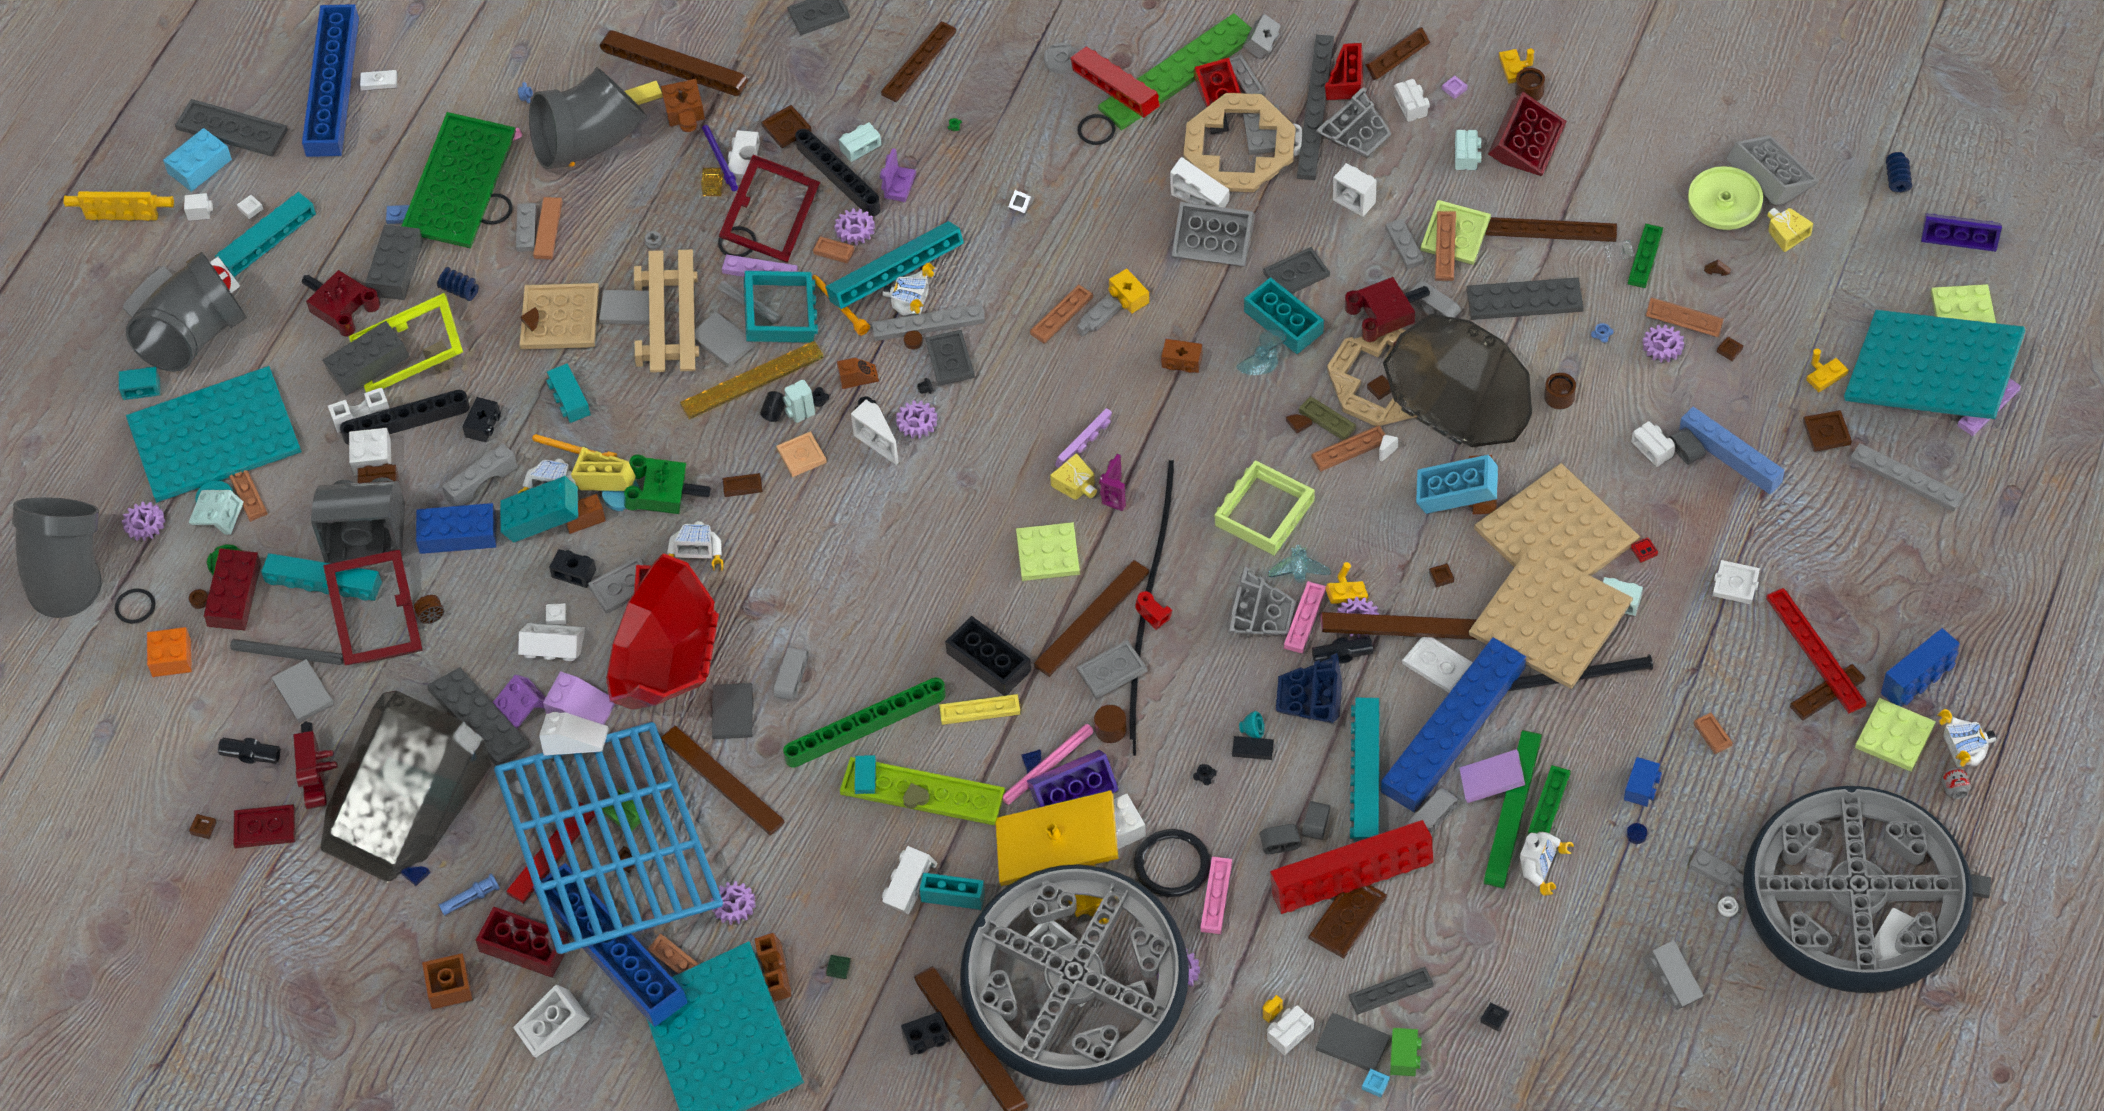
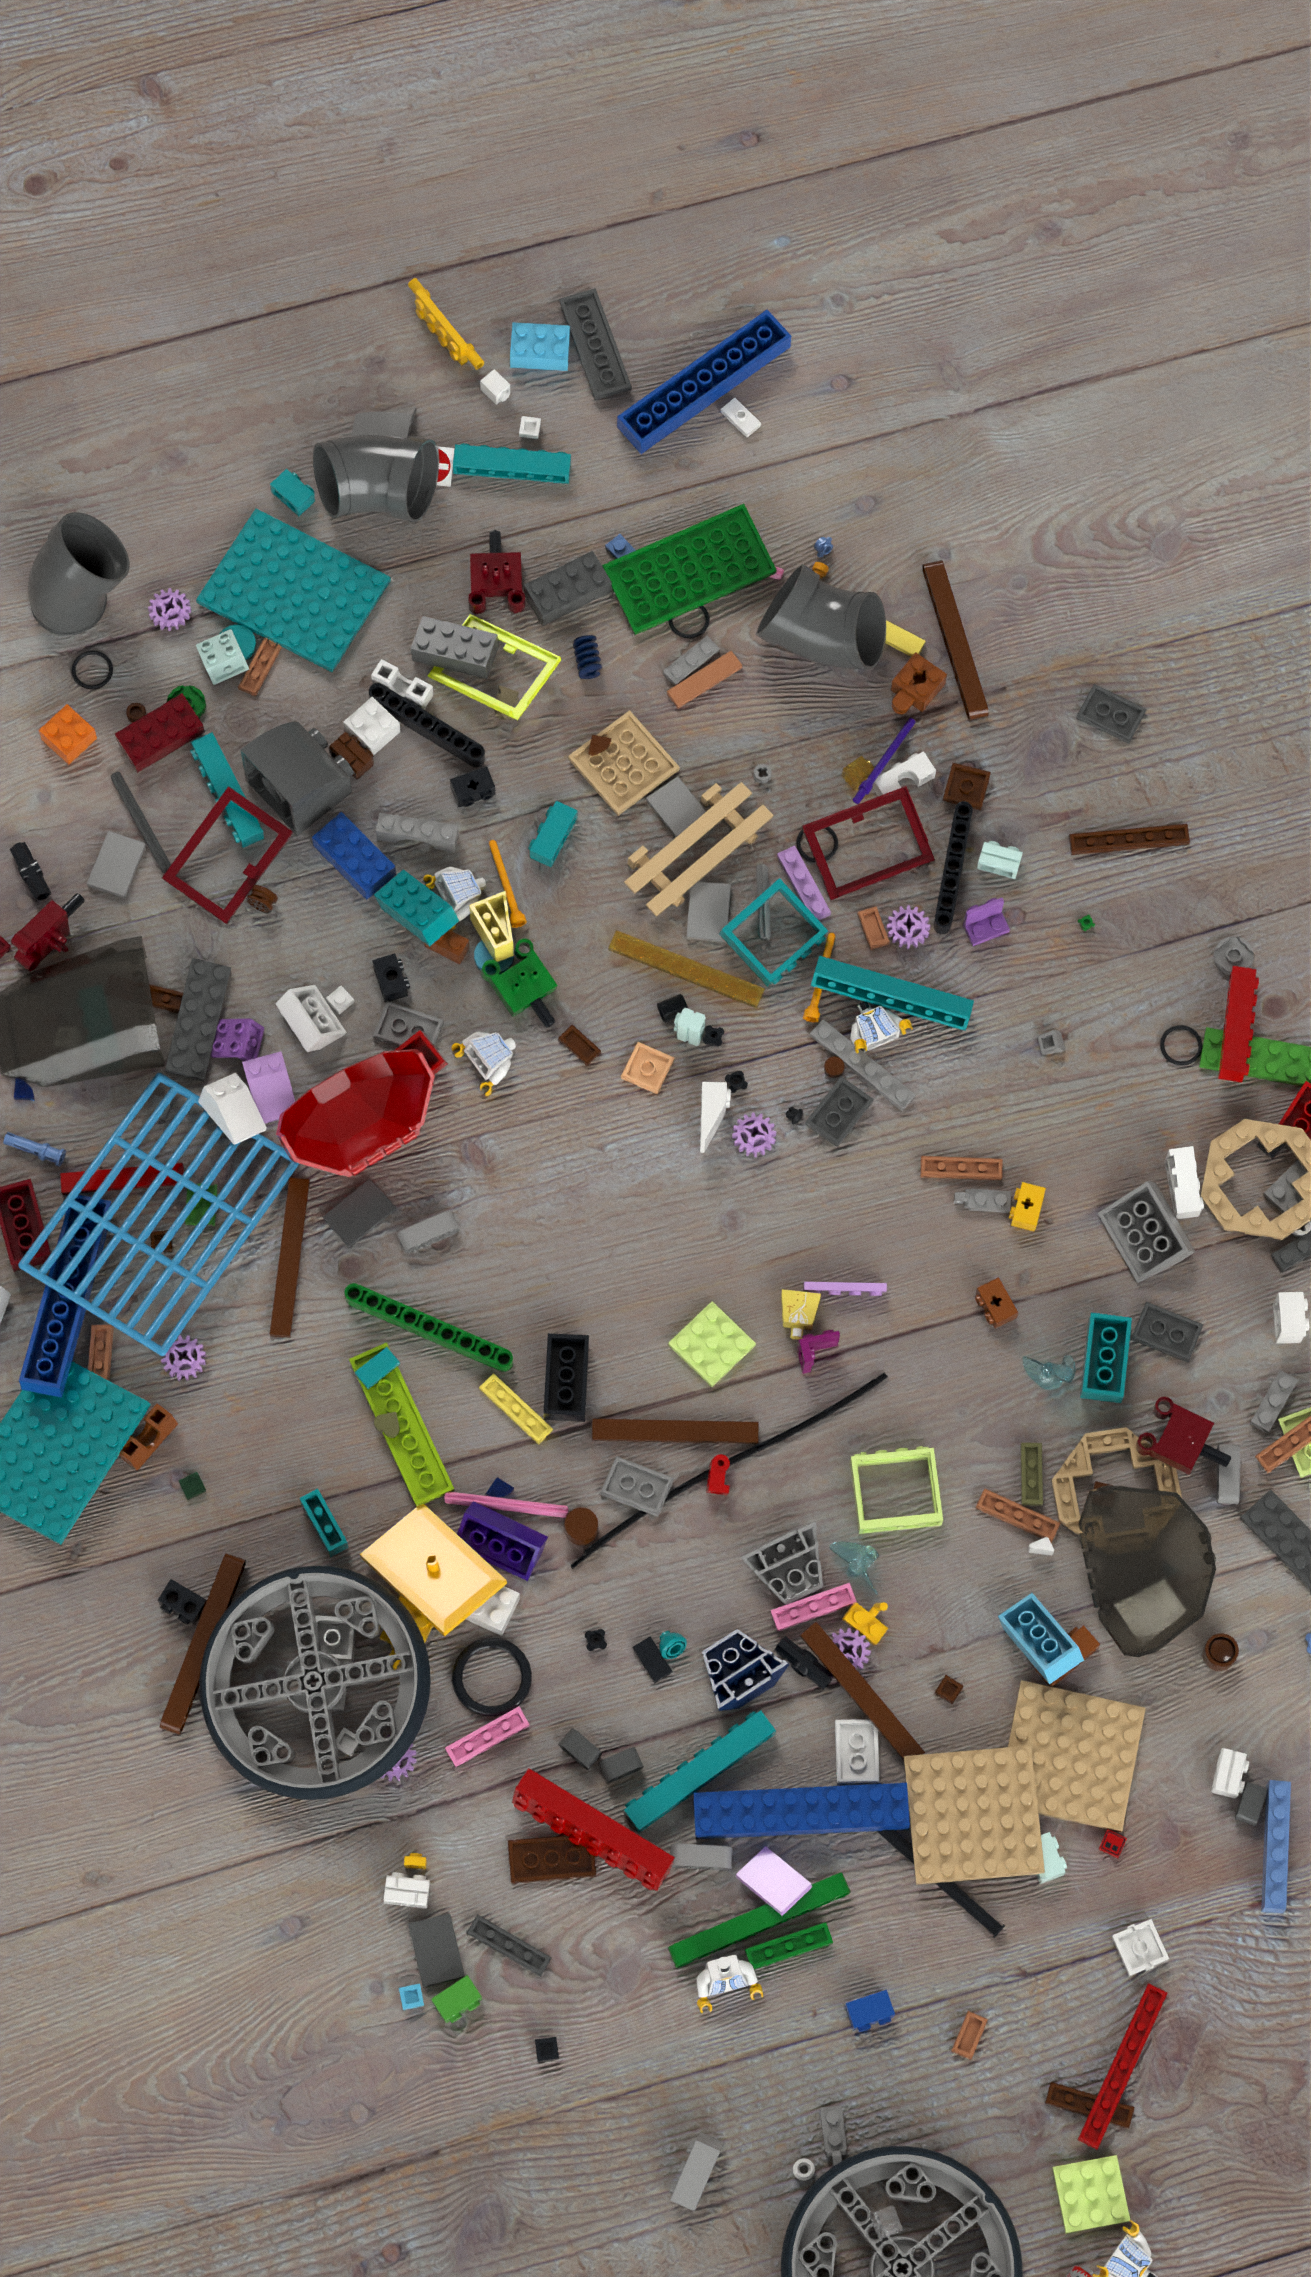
camera: 45 degrees right, 15 degrees up
(856, 372) = (761, 1048): dark orange slope -> none
(907, 879) = (305, 1478): white wedge -> none
(1298, 422) = (1009, 1452): reddish brown tile -> none
(1636, 833) = (817, 2041): clear blue tile -> none
(1920, 668) = (1170, 2172): blue brick -> none

